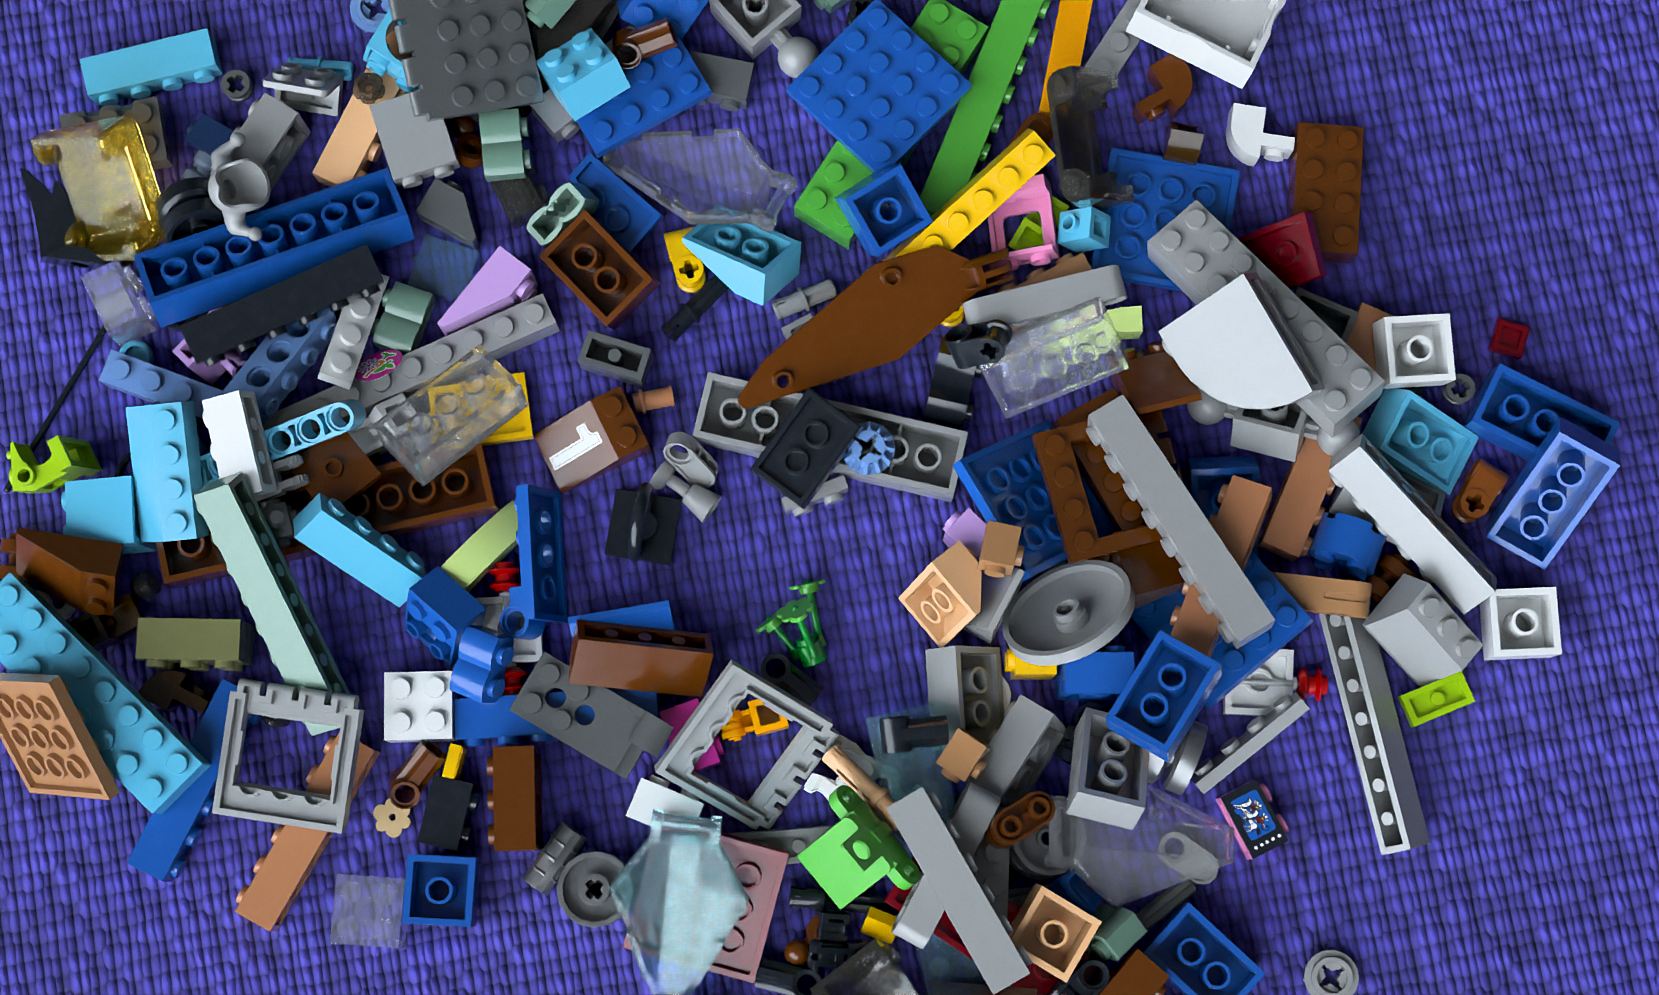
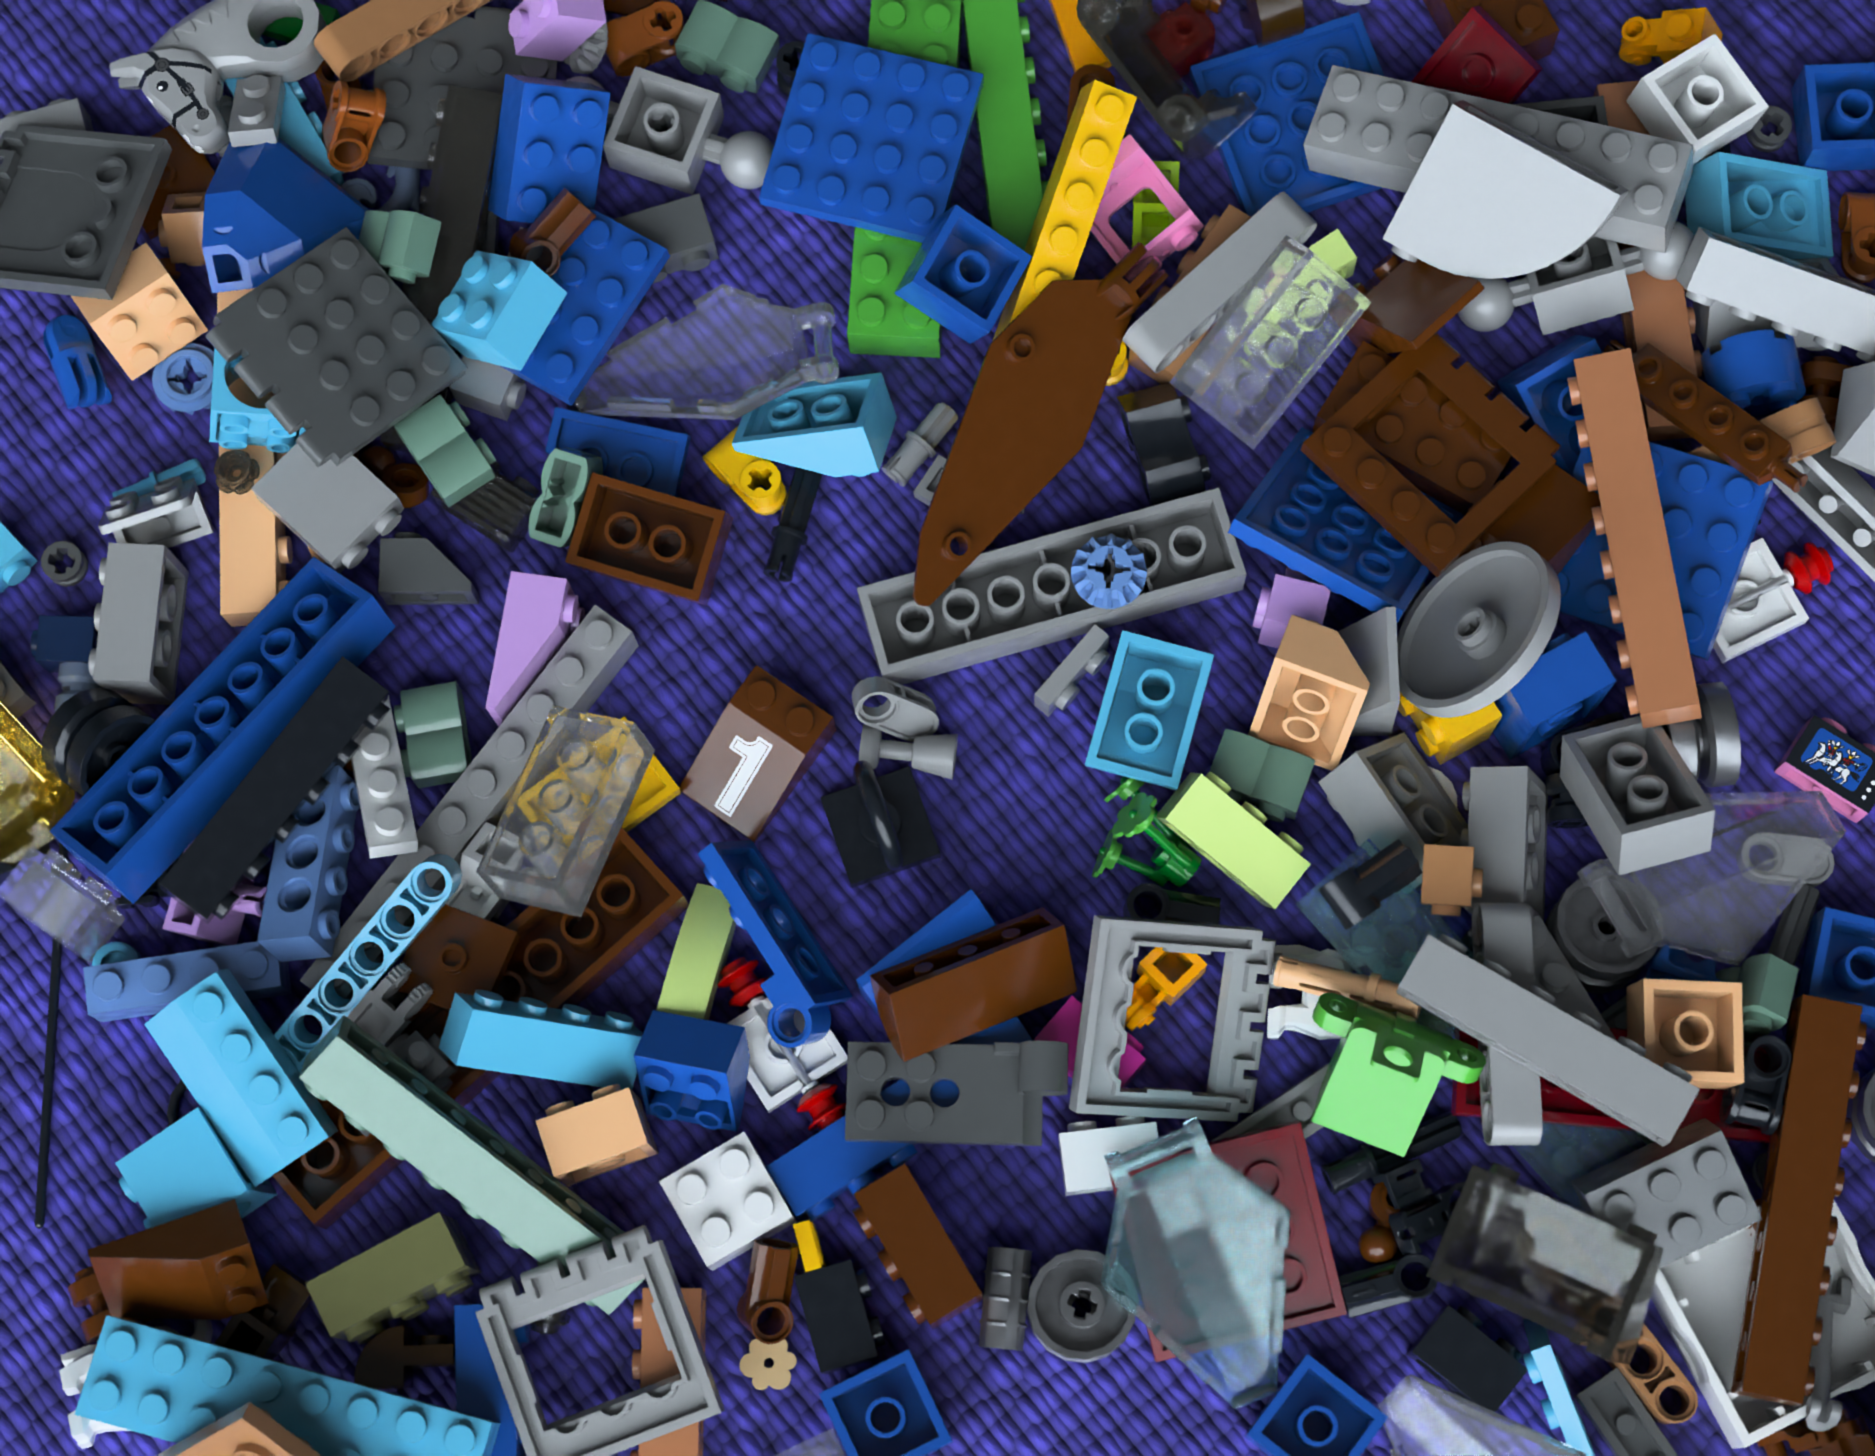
camera: 20 degrees left, 5 degrees down
(67, 462) = (102, 1140): lime tile -> none
(145, 585) = (287, 1245): clear smoke plate -> none
(237, 187) = (139, 673): light grey piece -> none
(239, 439) = (314, 980): white brick -> none
(362, 623) = (596, 1135): none -> light nougat brick
(378, 365) = (438, 802): sticker -> none
(443, 267) = (450, 645): clear light blue piece -> none
(482, 664) = (779, 1100): blue brick -> none
(615, 358) = (730, 637): dark grey brick -> none
(653, 399) = (804, 663): nougat pin -> none
(806, 448) = (1034, 611): black tile -> none
(845, 548) = (1149, 710): none -> medium azure slope
(852, 656) = (1234, 838): none -> yellowish green brick
(879, 925) = (1459, 1151): yellow tile -> none
(892, 625) = (1262, 774): none -> sand green brick
(978, 343) = (1171, 375): black piece -> none
(1000, 549) = (1350, 594): medium nougat brick -> none
(1020, 820) = (1566, 915): reddish brown brick -> none
(1084, 229) = (1214, 177): medium azure brick -> none
(1117, 127) = (1183, 37): none -> clear red brick
(1164, 696) = (1659, 658): blue brick -> none
(1180, 523) = (1548, 446): light grey brick -> none
(1259, 733) = (1784, 660): light grey plate -> none
(1297, 557) = (1712, 419): none -> reddish brown plate
(1428, 296) = (1666, 35): none -> light orange brick
(1508, 338) = (1791, 39): dark red tile -> none

